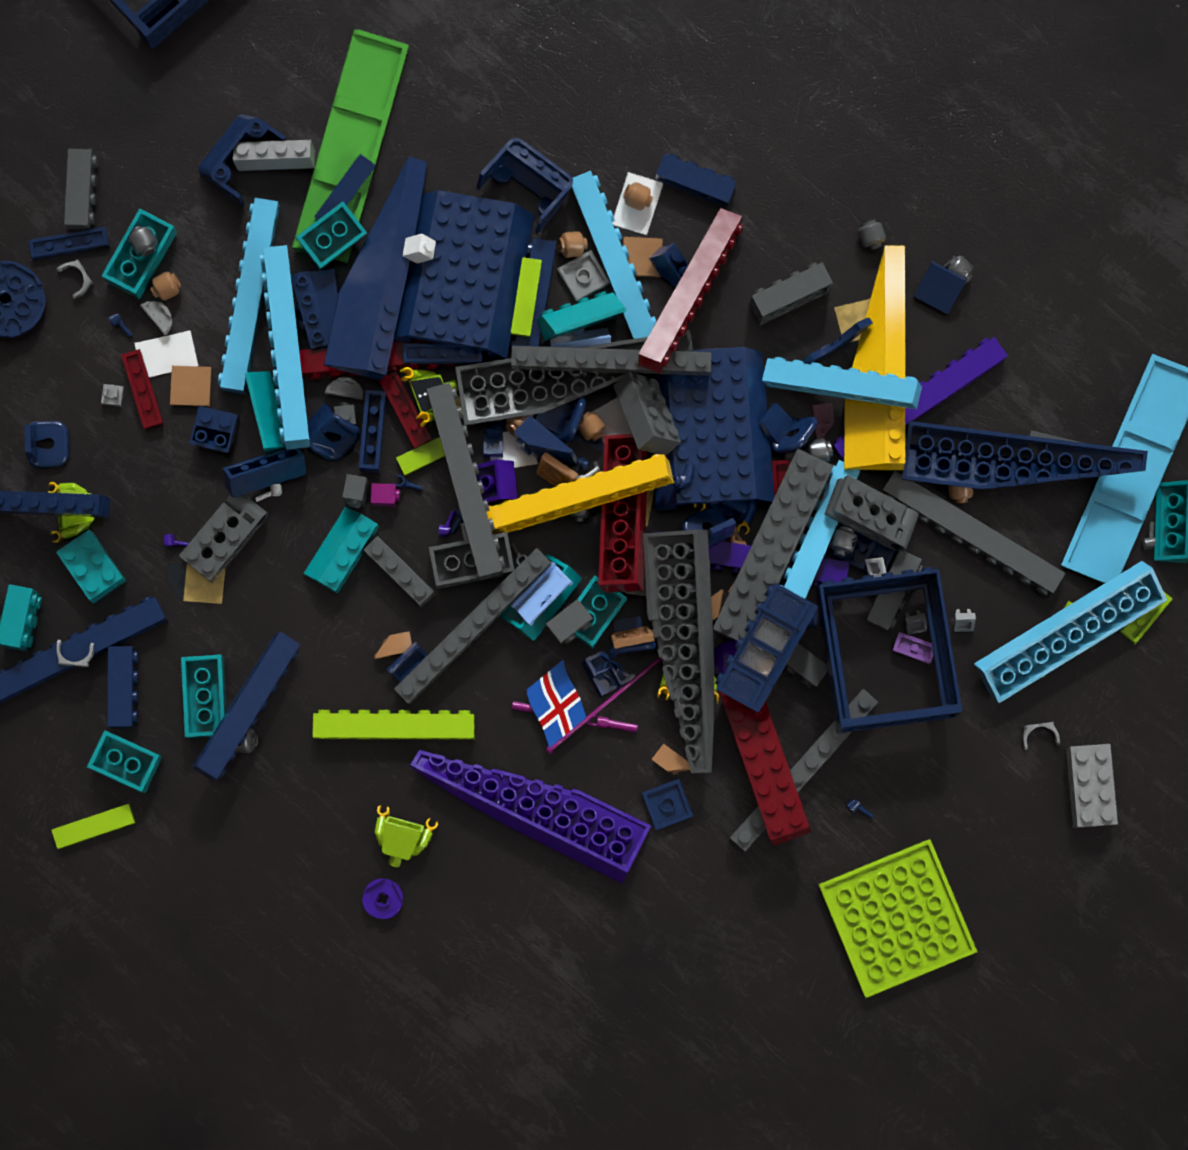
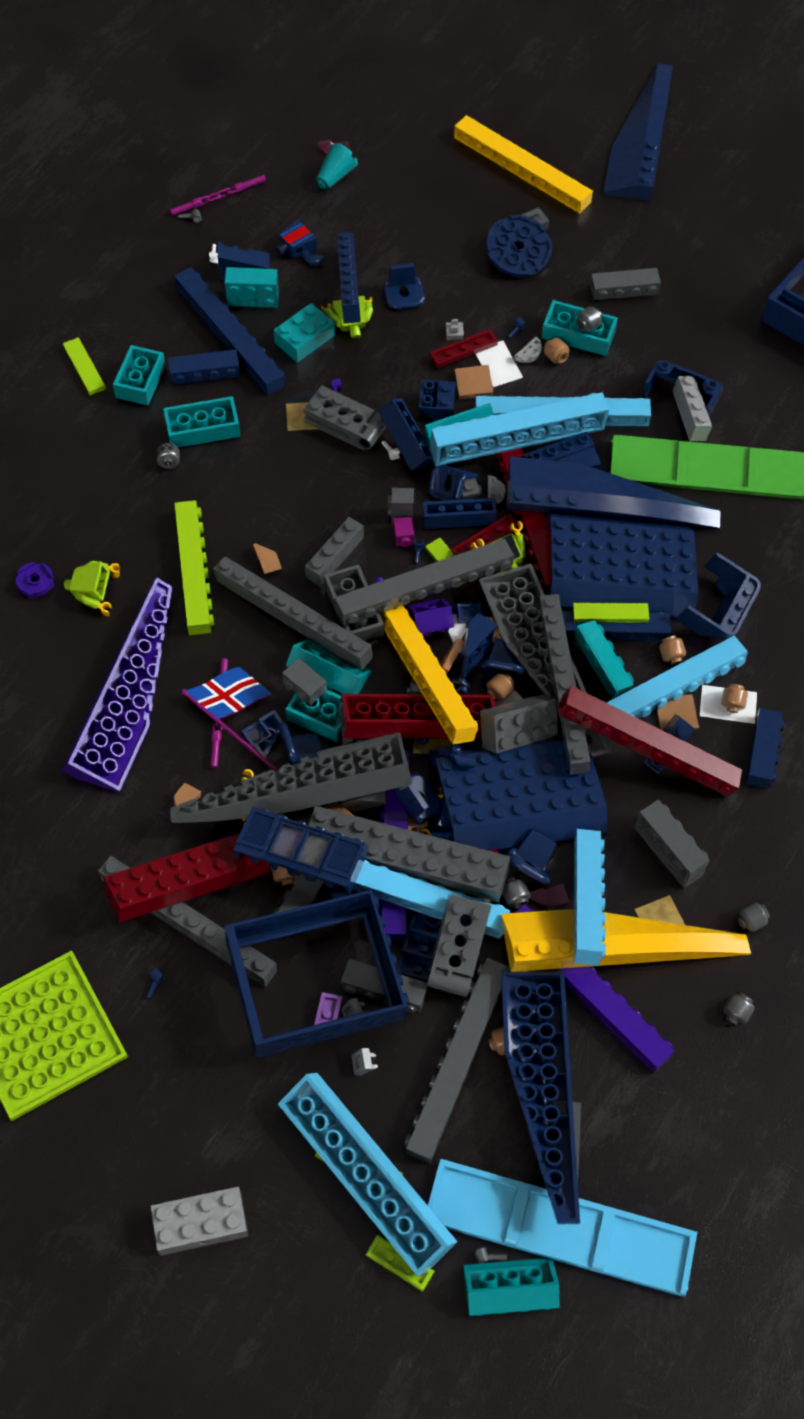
camera: 85 degrees right, 20 degrees down
(69, 243) = (577, 284): dark blue tile -> none
(83, 663) = (219, 318): light grey cap -> none
(87, 281) = (546, 300): light grey cap -> none
(245, 706) = (195, 446): dark blue brick -> none
(331, 236) = (629, 453): teal brick -> none
(341, 550) = (339, 505): teal slope -> none
(348, 185) = (674, 464): dark blue tile -> none
(407, 662) = (254, 567): dark blue tile -> none
(419, 248) = (633, 515): white brick -> none
(439, 354) = (540, 550): dark blue tile -> none
(541, 593) = (330, 659): light blue door -> none
(582, 338) = (583, 667): light blue door -> none
(583, 276) = (645, 664): light grey tile -> none
(632, 637) = (297, 738): medium nougat tile -> none
(667, 804) = (142, 804): dark blue tile -> none
(843, 340) = (638, 904): dark blue tile -> none
(843, 541) = (425, 923): flat silver head -> none
(875, 566) = (405, 961): white slope -> none
(940, 287) = (714, 990): dark blue tile -> none
(1028, 728) = (262, 1169): light grey cap -> none

